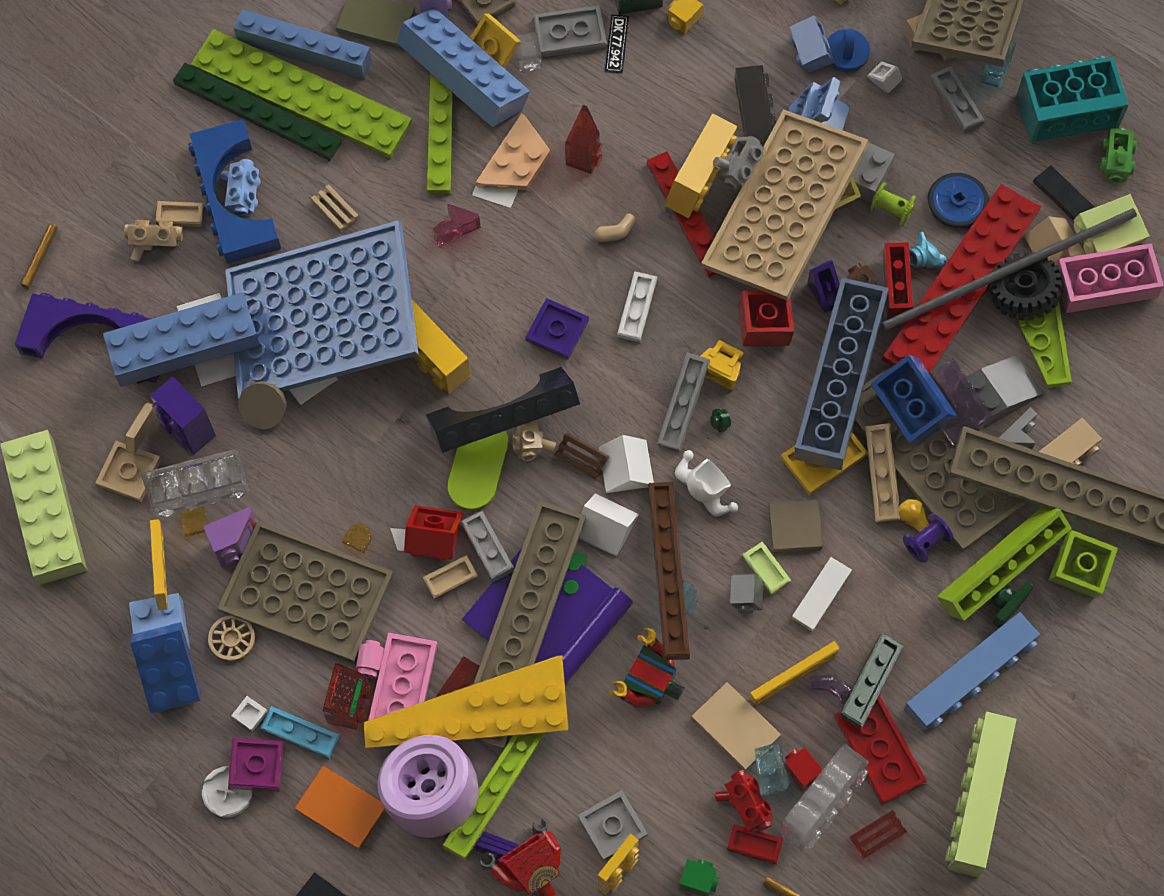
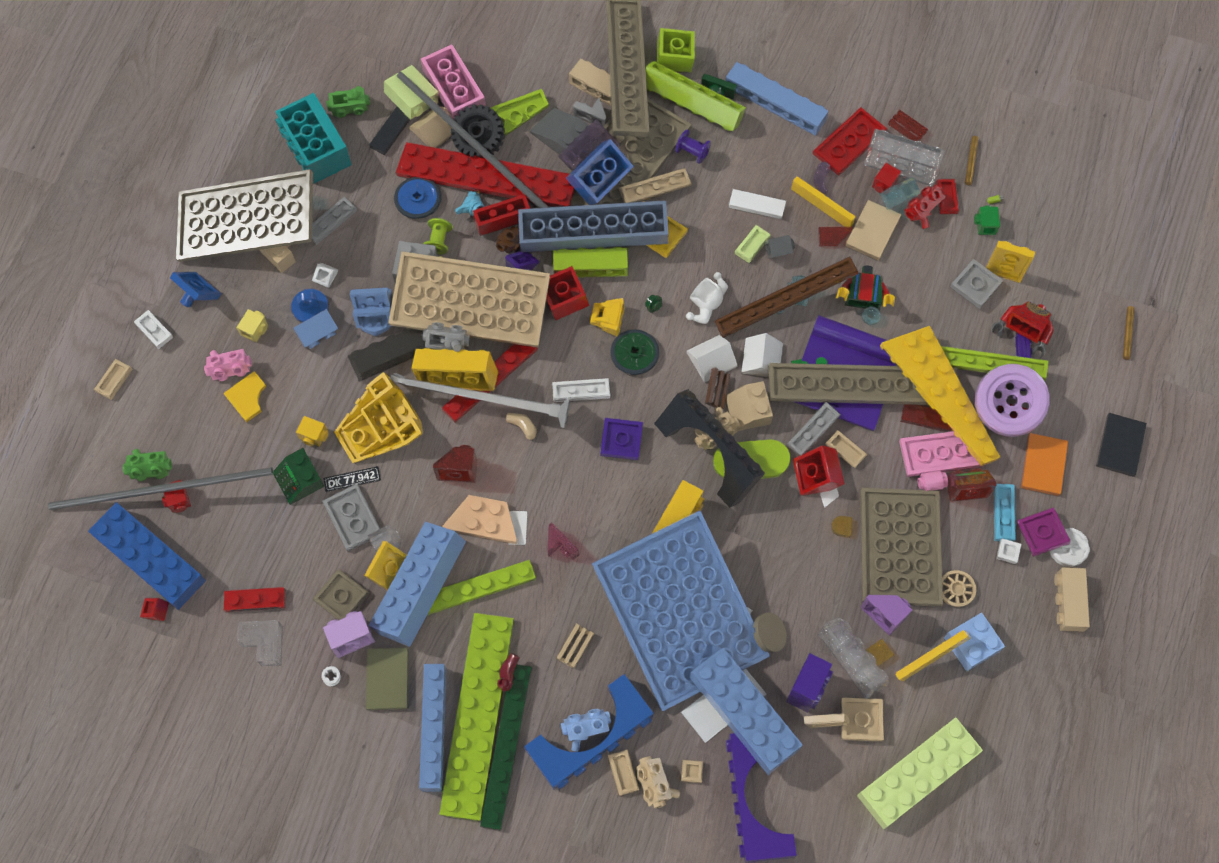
camera: 110 degrees left, 0 degrees up
(151, 281) = (692, 771): none -> tan tile
(161, 761) = (1072, 599): none -> tan brick
(165, 667) = (1009, 616): blue brick -> none
(328, 127) = (506, 672): none -> dark red arm
(543, 482) = (750, 406): none -> tan slope
(612, 259) = (553, 409): none -> light grey piece
(614, 667) = (871, 311): none -> clear light blue plate
(648, 377) = (631, 362): none -> dark green wheel
(671, 83) = (378, 421): none -> yellow wedge
(683, 401) = (650, 330): light grey tile -> none
(744, 671) = (832, 235): none -> clear red tile
(795, 526) = (713, 234): dark tan tile -> none
(800, 364) = (592, 262): none -> lime brick
(870, 680) = (809, 154): tile -> none
(913, 514) = (677, 161): yellow animal -> none
(982, 794) = (860, 68): yellowish green brick -> none

